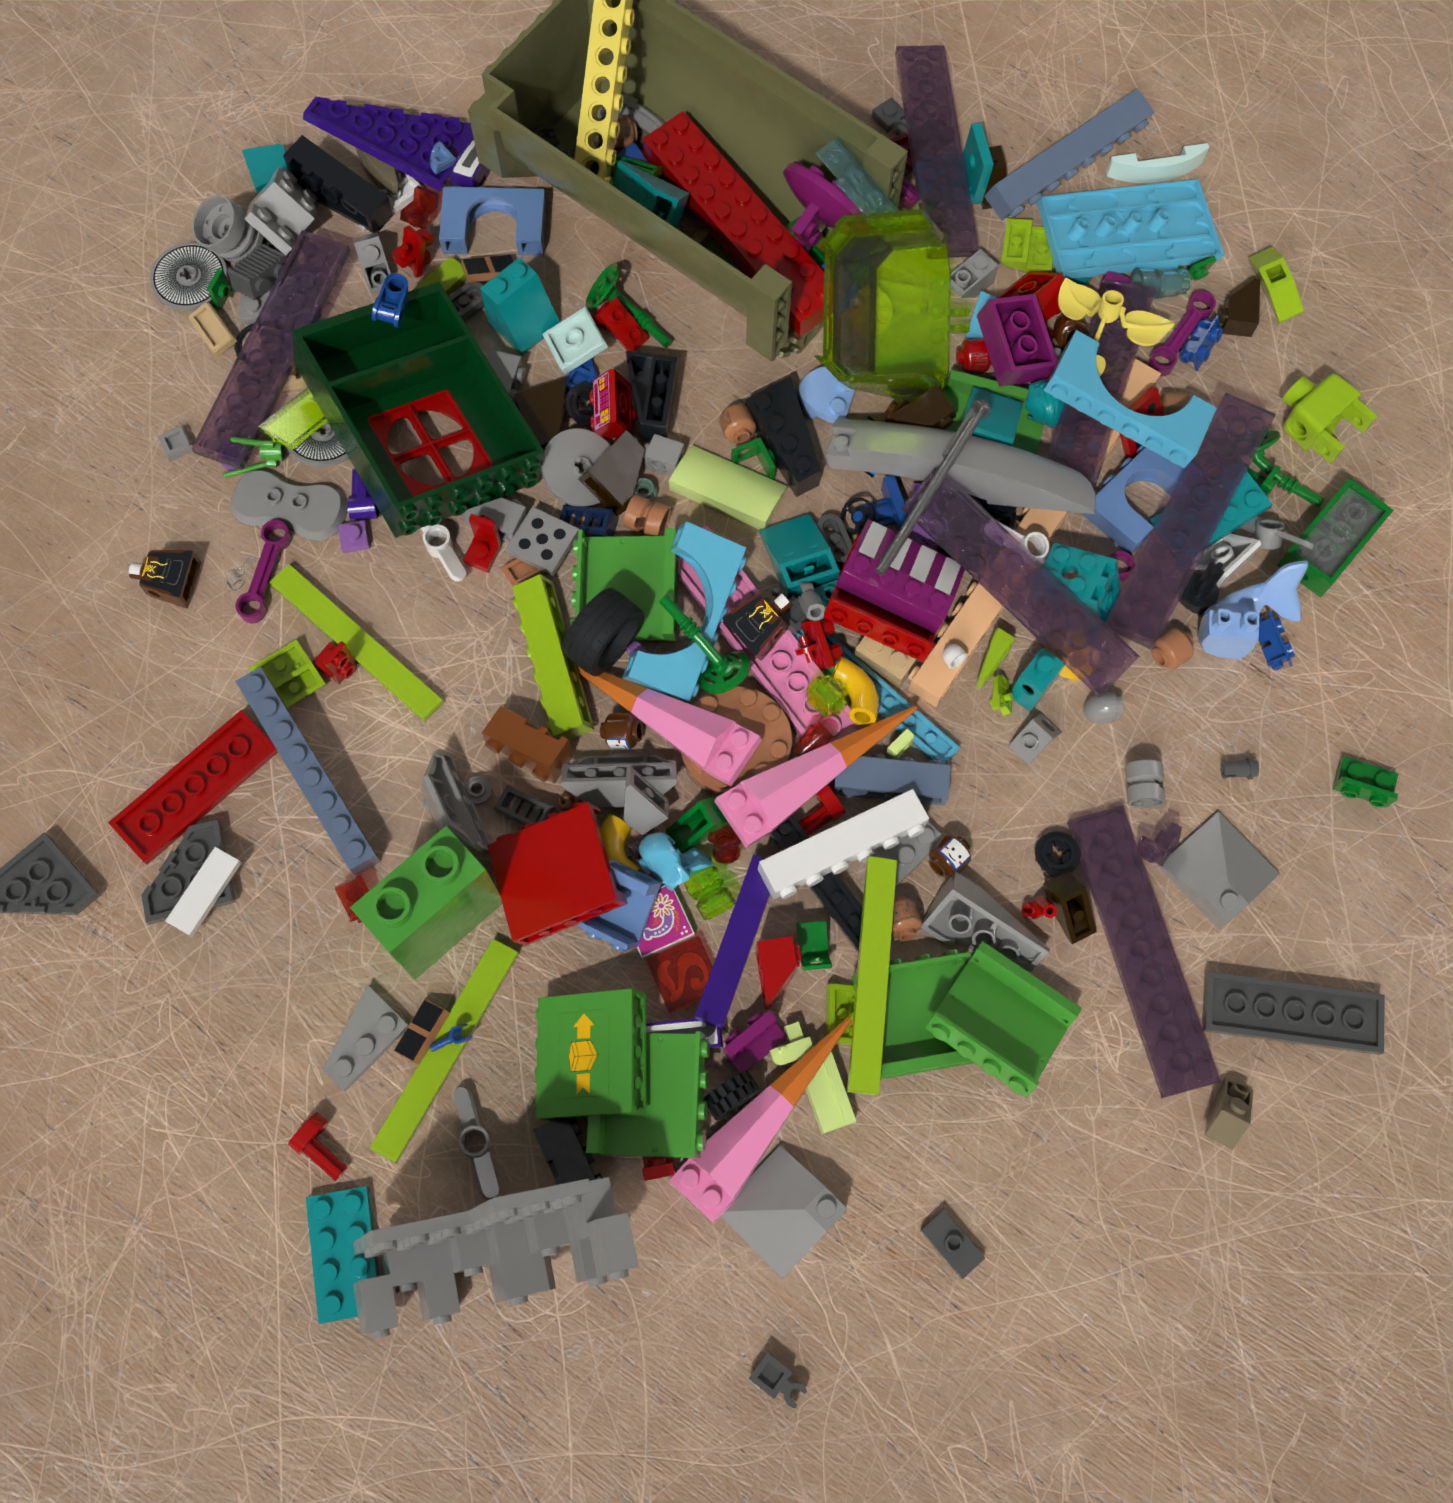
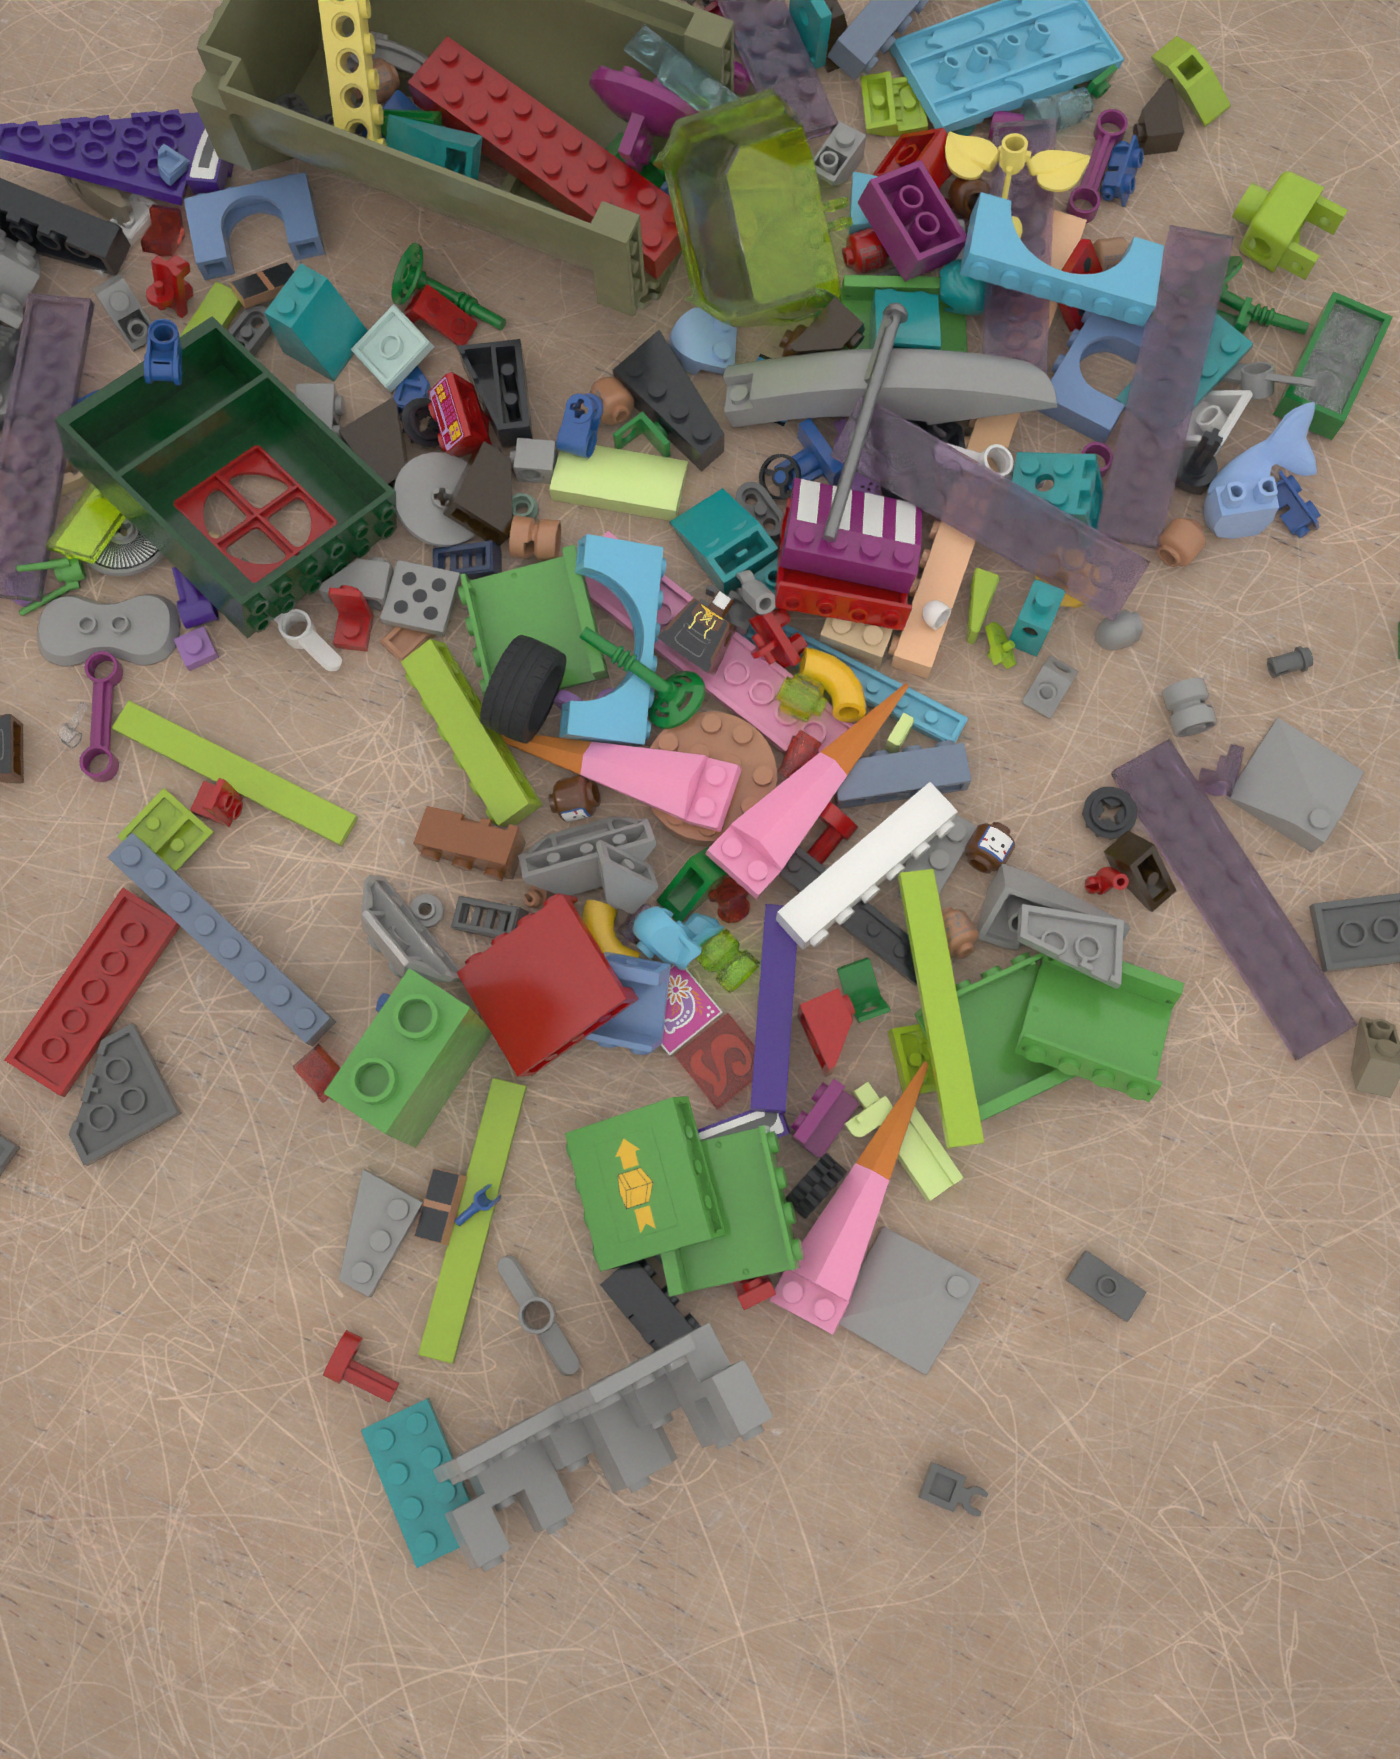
camera: 10 degrees left, 5 degrees up
(203, 891) = (140, 1112): white tile -> none
(705, 438) = (579, 429): none -> blue piece
(1000, 948) = (1075, 939): none -> light grey wing

